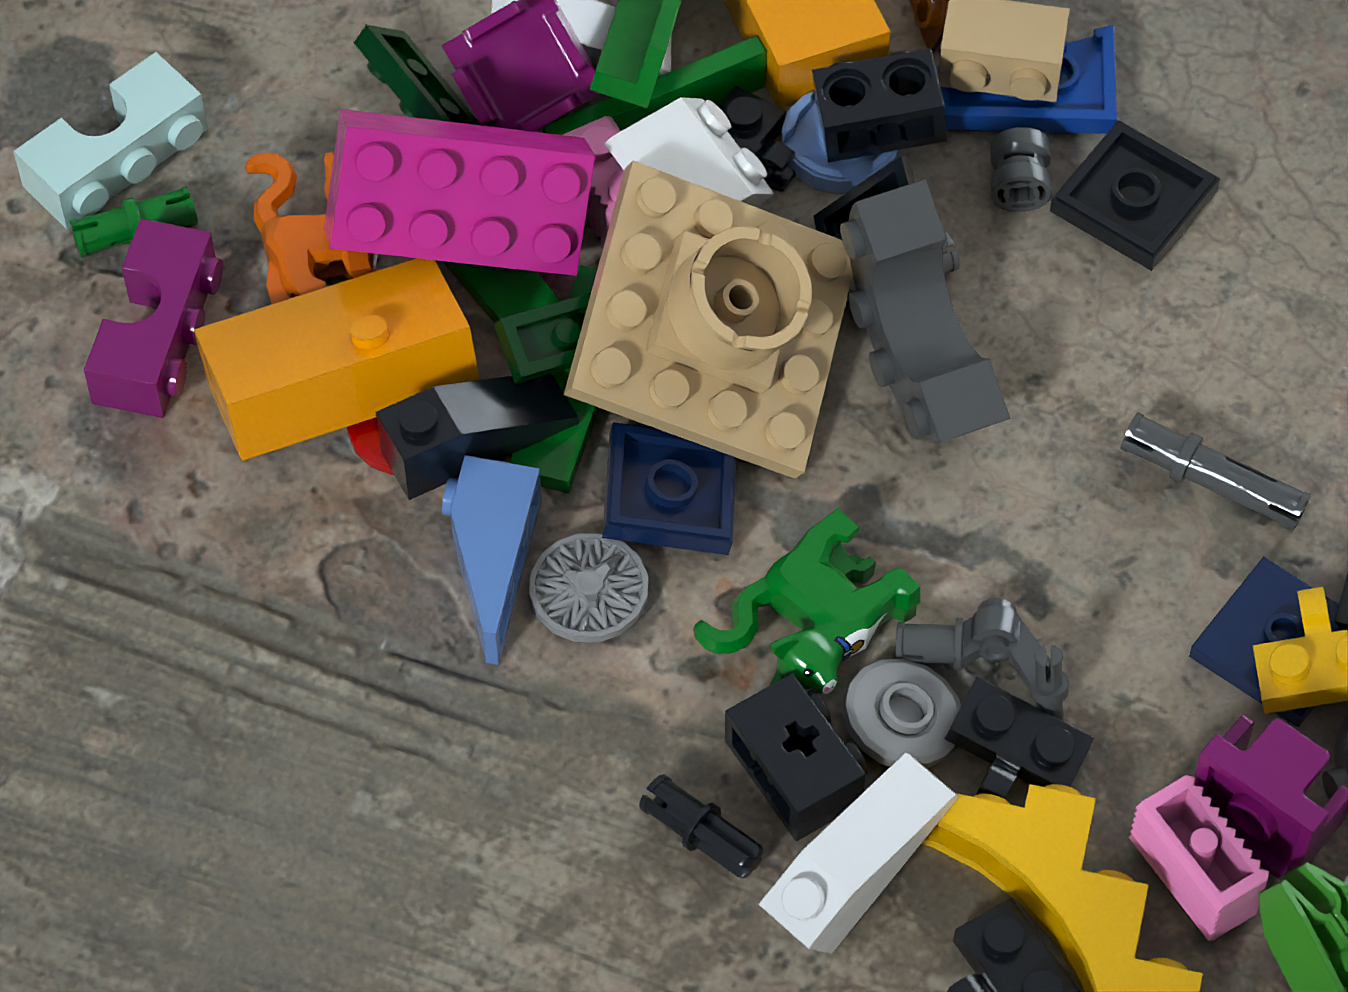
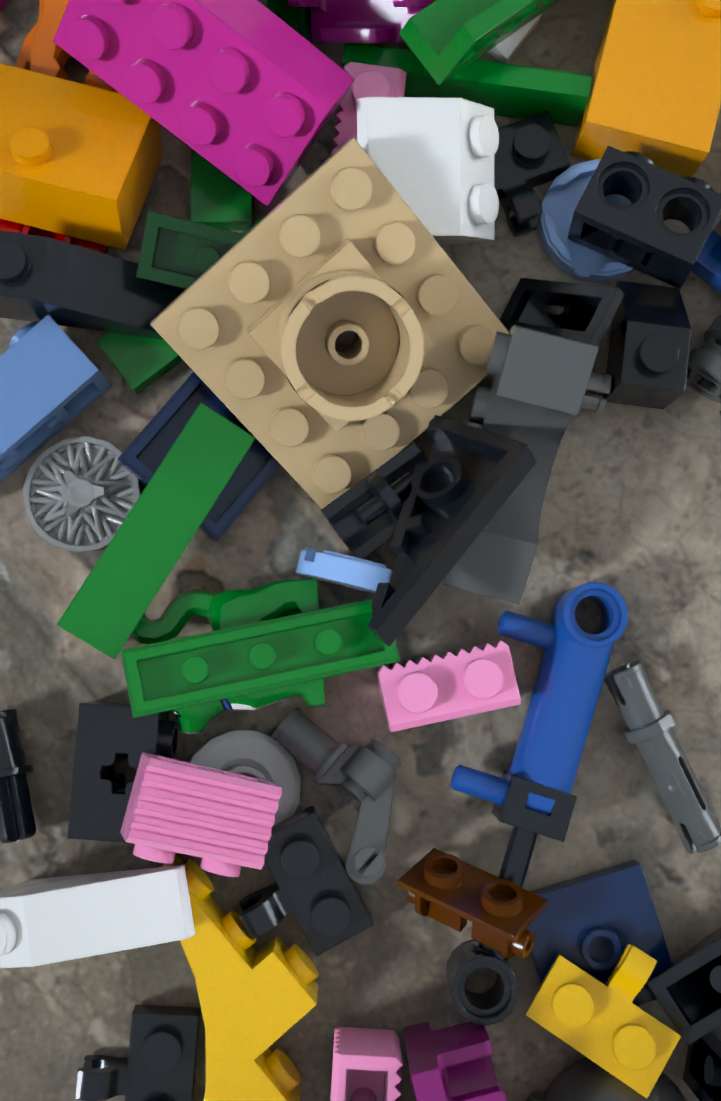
camera: 30 degrees right, 25 degrees up
(683, 553) = (156, 531): none -> green tile
(842, 578) = (253, 658): none -> green tile
(845, 429) = (371, 509): none -> black hips
(874, 478) = (343, 570): none -> light blue tile
(889, 709) = (199, 814): none -> bright pink brick
(900, 366) = (449, 506): none -> black wing
(966, 198) = (648, 346): none -> black slope
(1003, 524) = (448, 686): none -> bright pink brick
(1131, 668) = (459, 892): none -> reddish brown hinge
(1139, 554) = (538, 786): none -> blue piece

